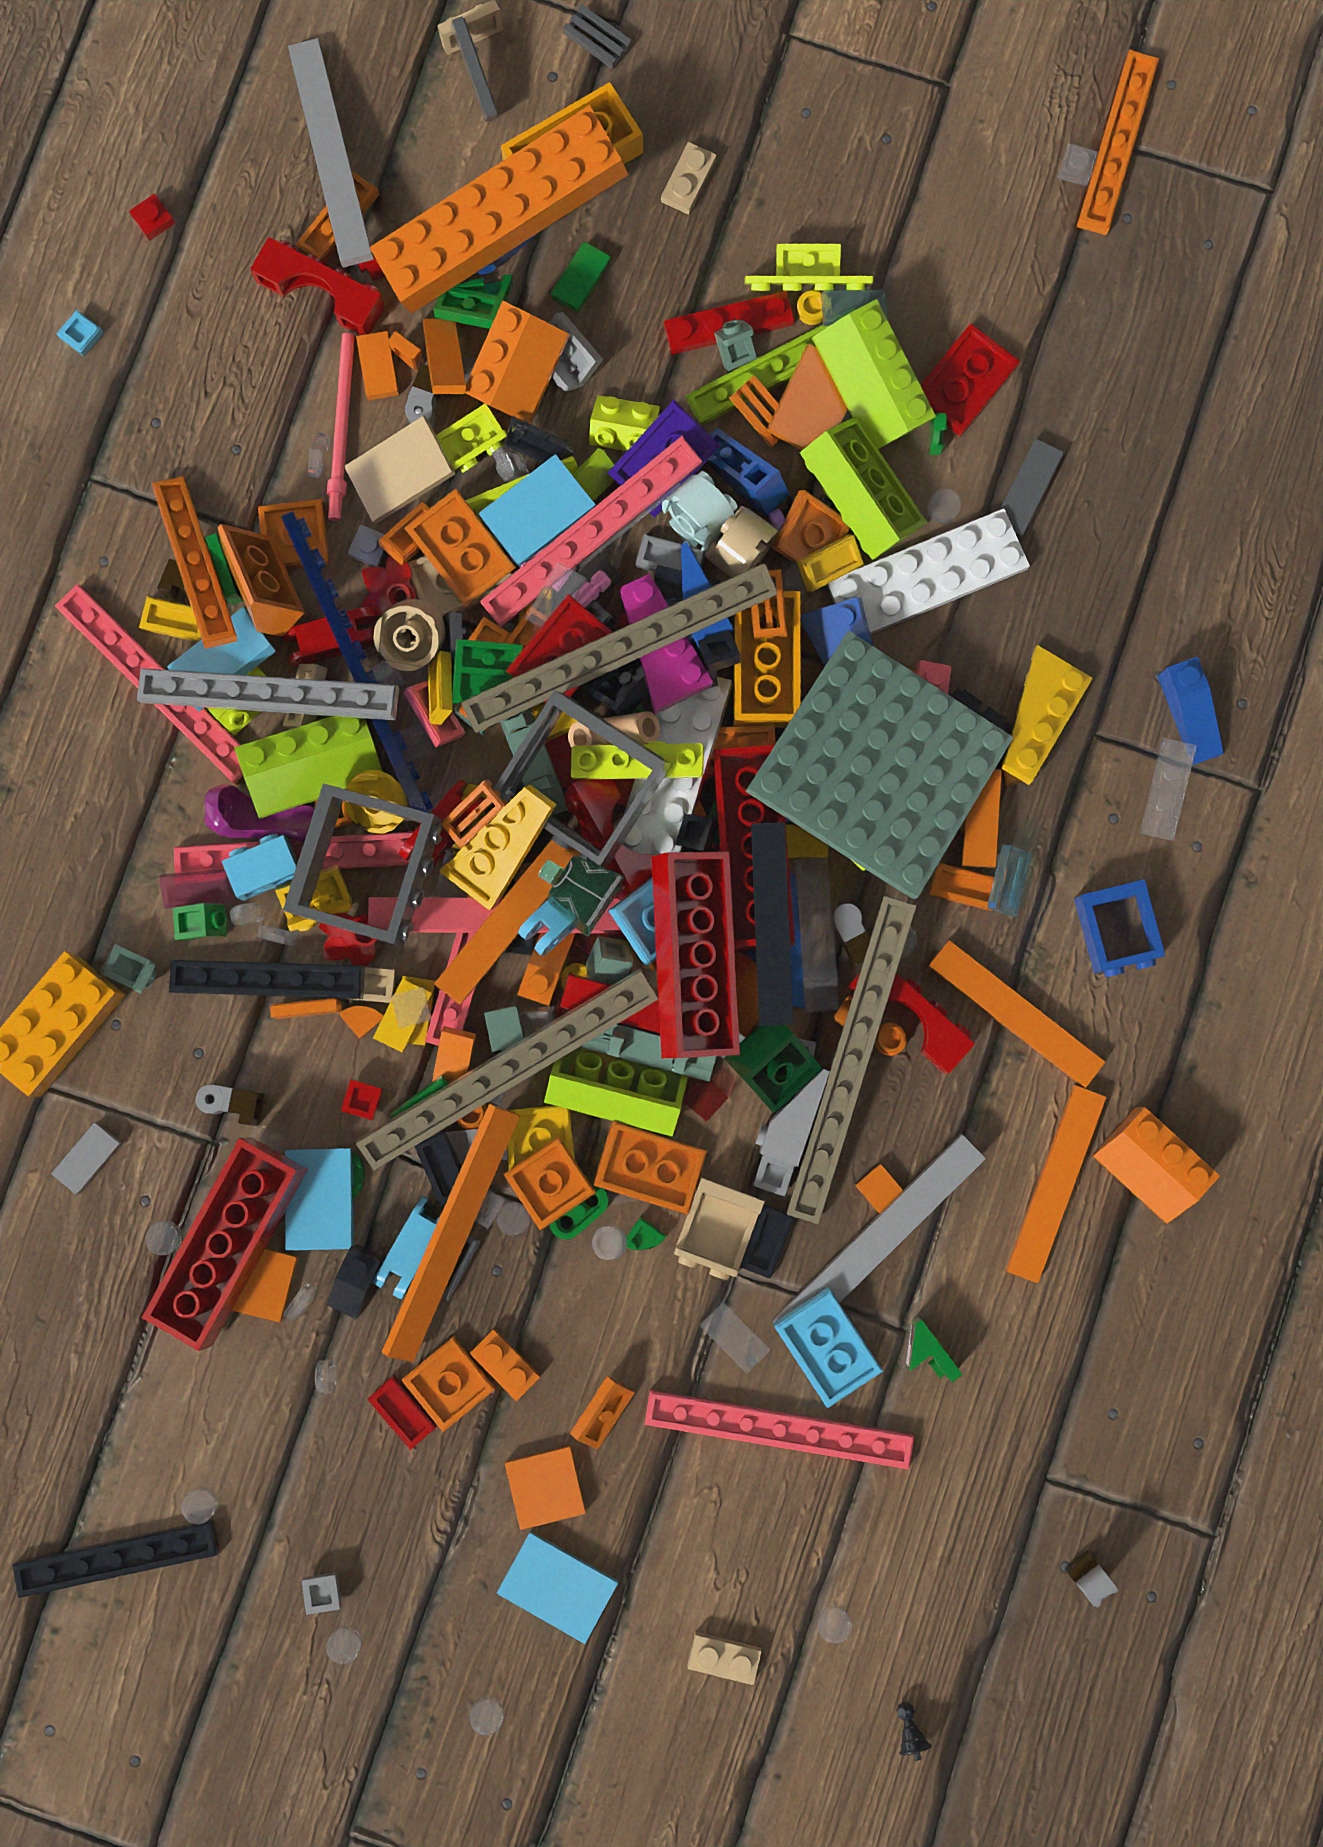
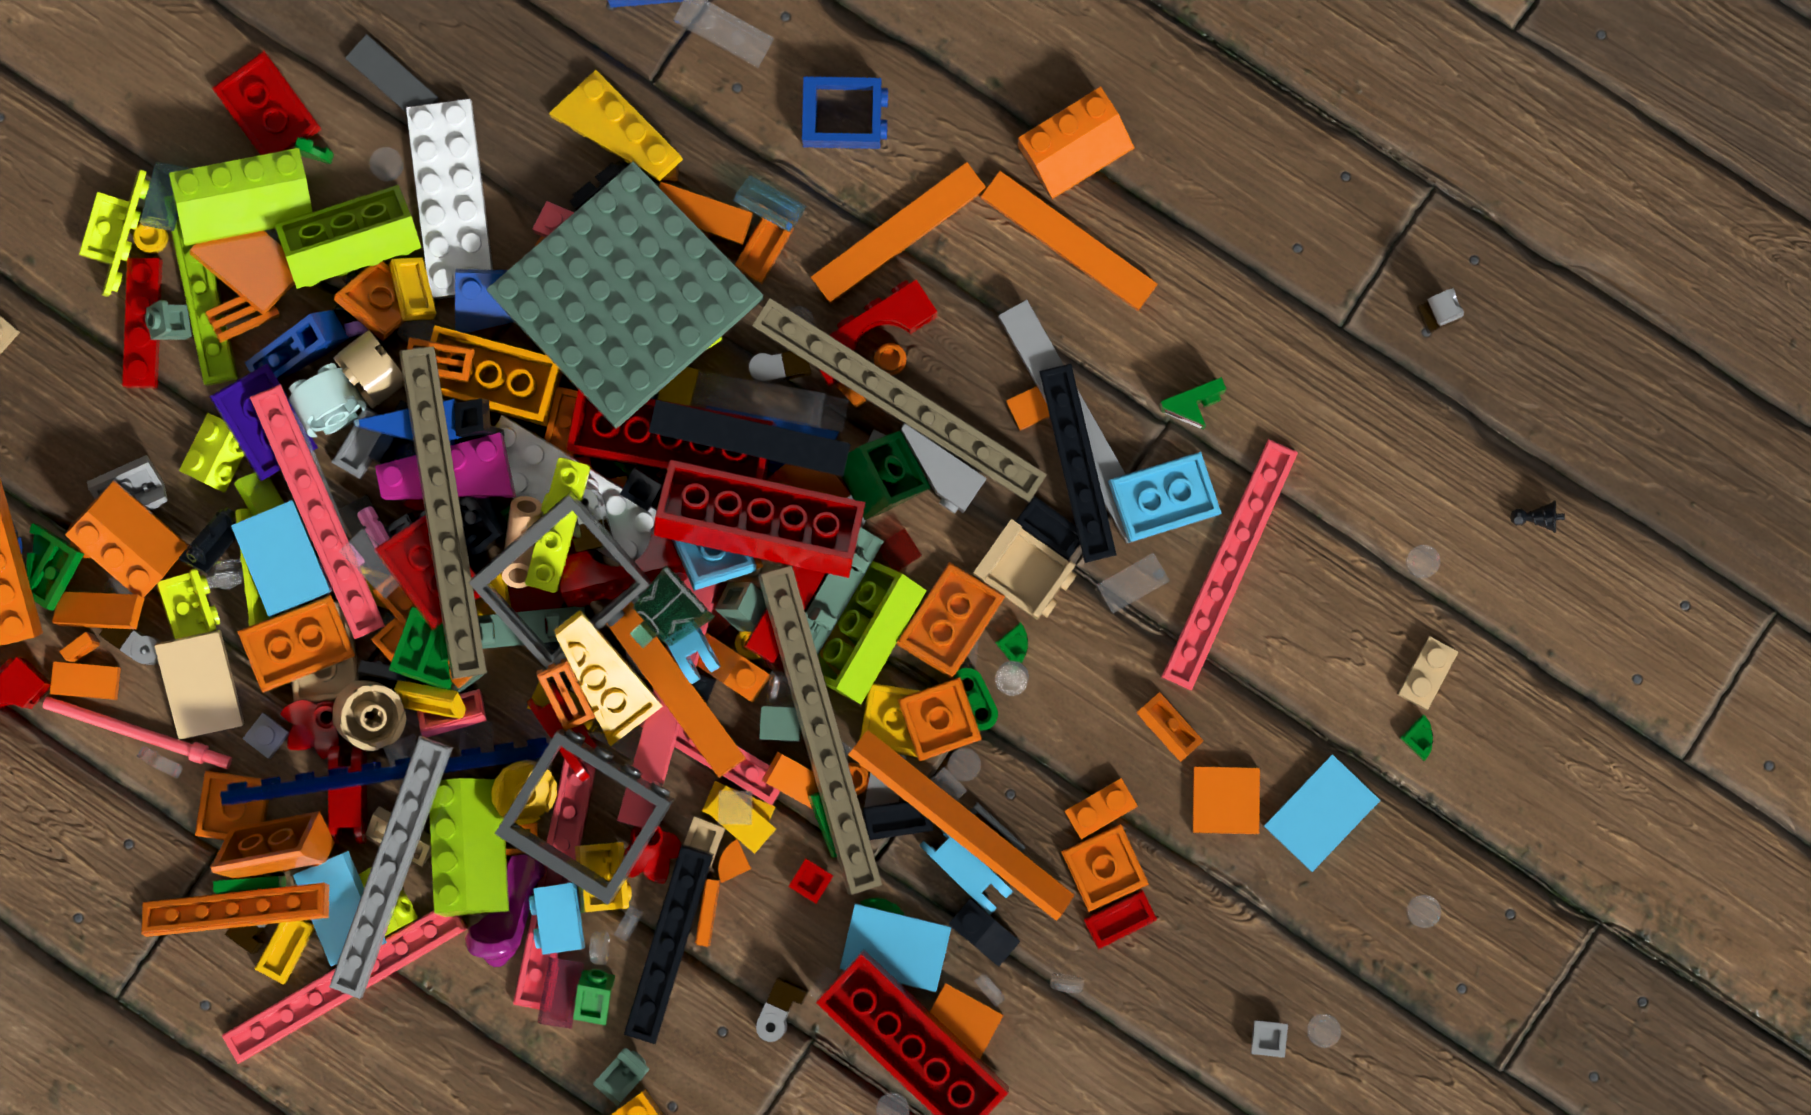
camera: 65 degrees left, 0 degrees up
(398, 541) = (270, 704): orange tile -> none
(581, 277) = (53, 455): green tile -> none
(658, 1666) = (1419, 737): none -> green tile
(667, 792) = (595, 504): none -> leg
(773, 1175) = (989, 504): light grey plate -> none
(837, 1252) = (1077, 463): none -> black tile

